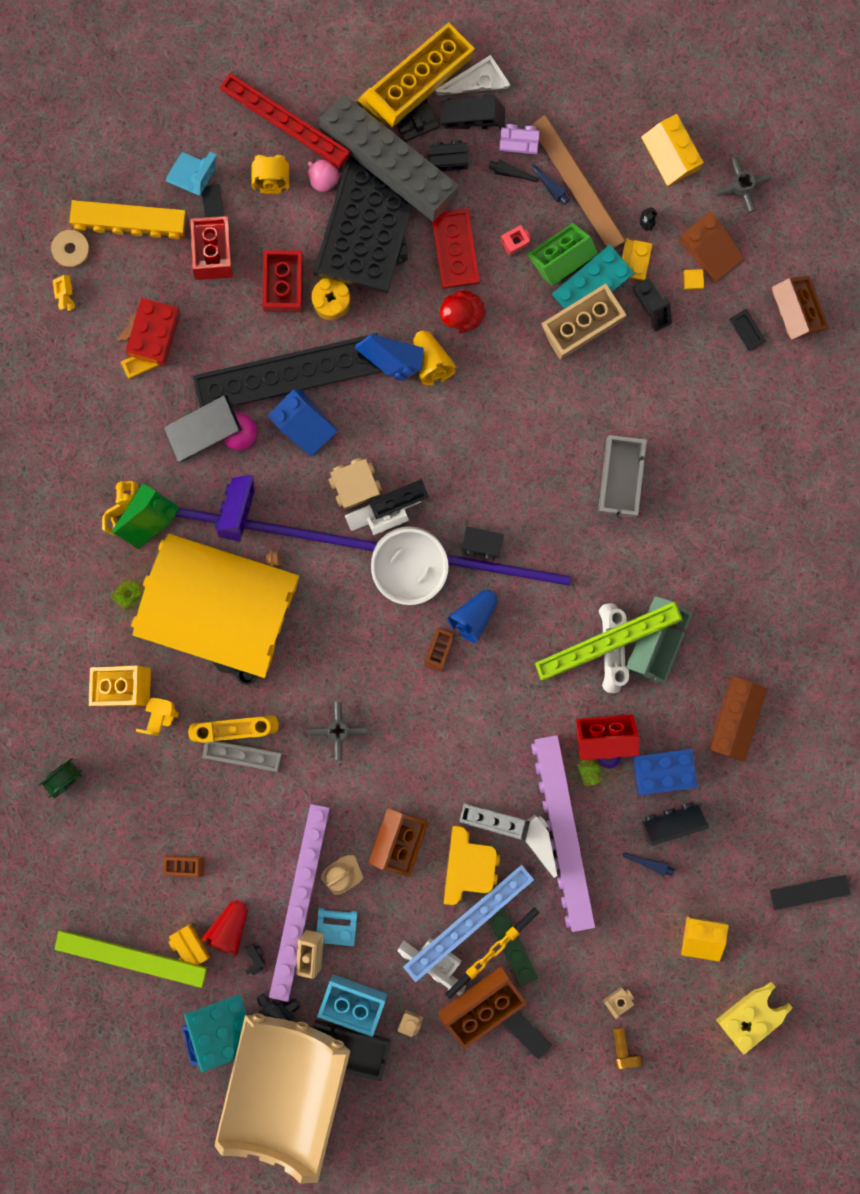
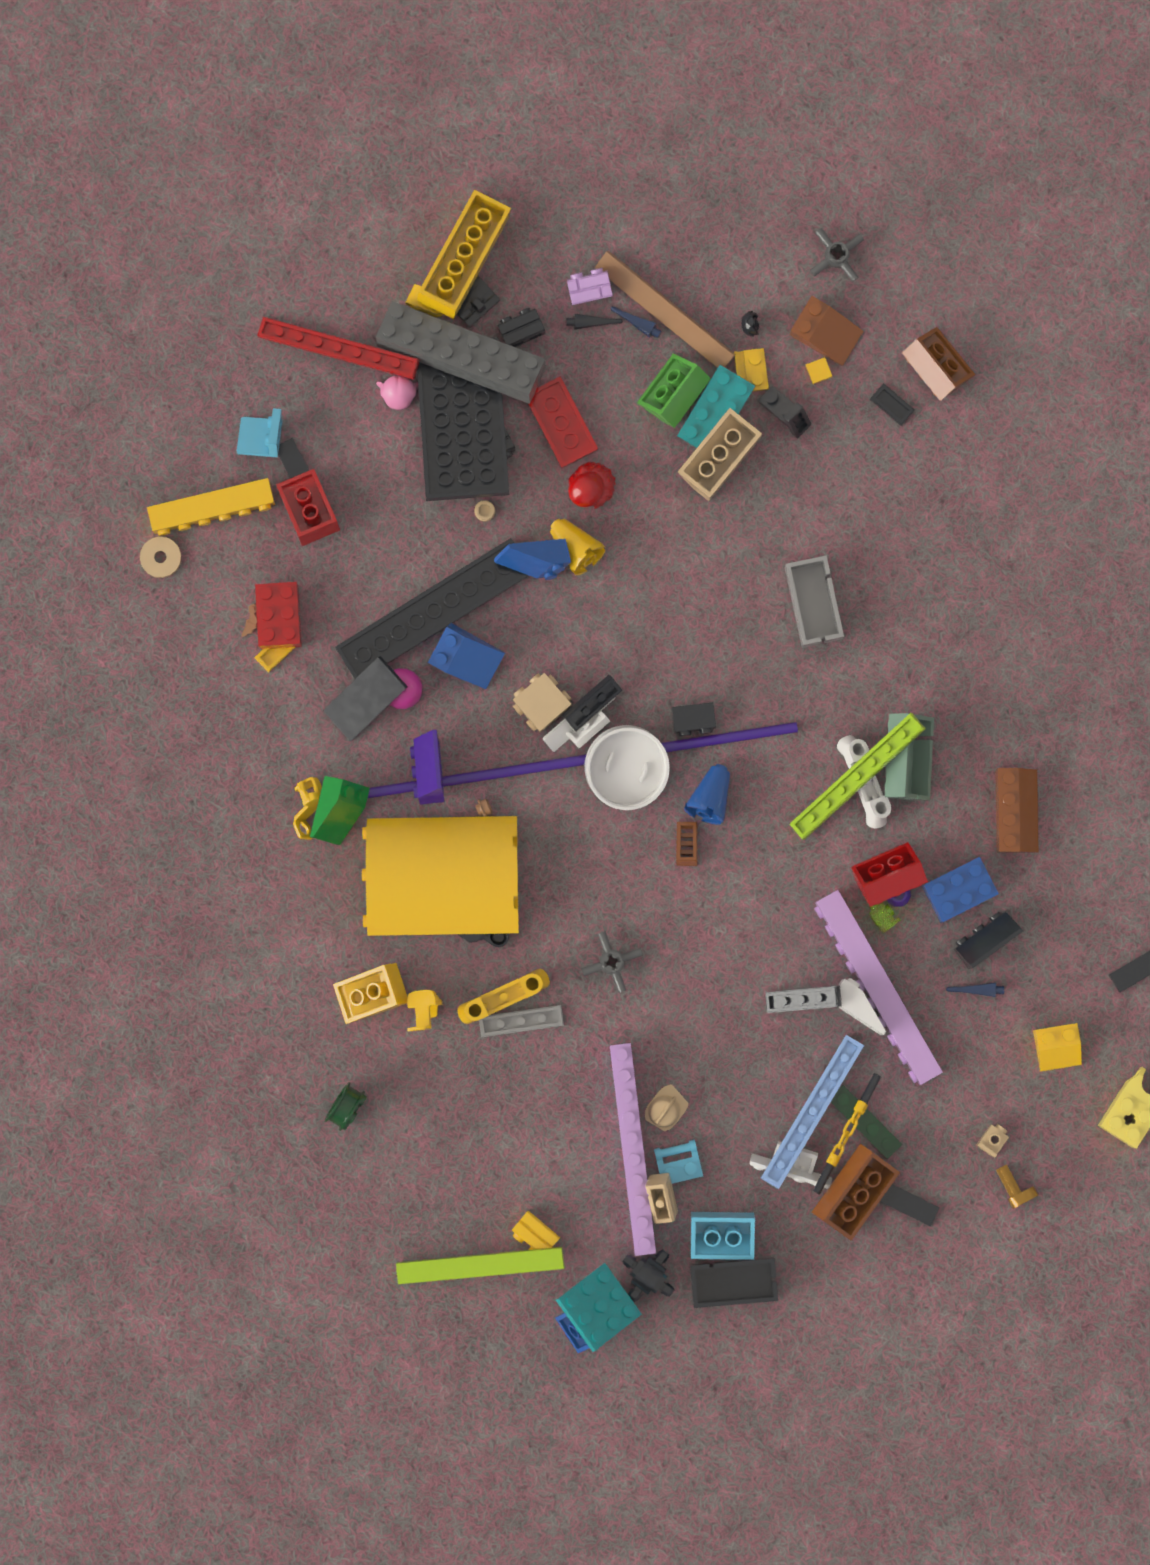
camera: 15 degrees left, 0 degrees up
(62, 291) = (169, 605): yellow plate -> none
(119, 594) = (345, 904): clear neon green brick -> none
(199, 866) = (517, 1150): dark orange slope -> none
(228, 928) = (568, 1203): red cone -> none
(256, 954) = (607, 1218): black bracket -> none
(270, 174) = (343, 410): yellow brick -> none
(282, 281) = (394, 517): red brick -> none
(282, 1095) = (683, 1348): tan panel -> none
(336, 308) = (459, 526): yellow brick -> none
(363, 302) = (484, 510): none -> tan tile
(398, 842) = (712, 1055): dark orange slope -> none
(410, 1023) = (787, 1234): tan brick -> none
(469, 867) = (793, 1055): yellow brick -> none
(471, 112) = (530, 274): black wedge -> none
(478, 78) = (525, 234): white wing -> none
(516, 233) = (621, 384): coral brick -> none
(672, 150) = (751, 243): yellow slope -> none

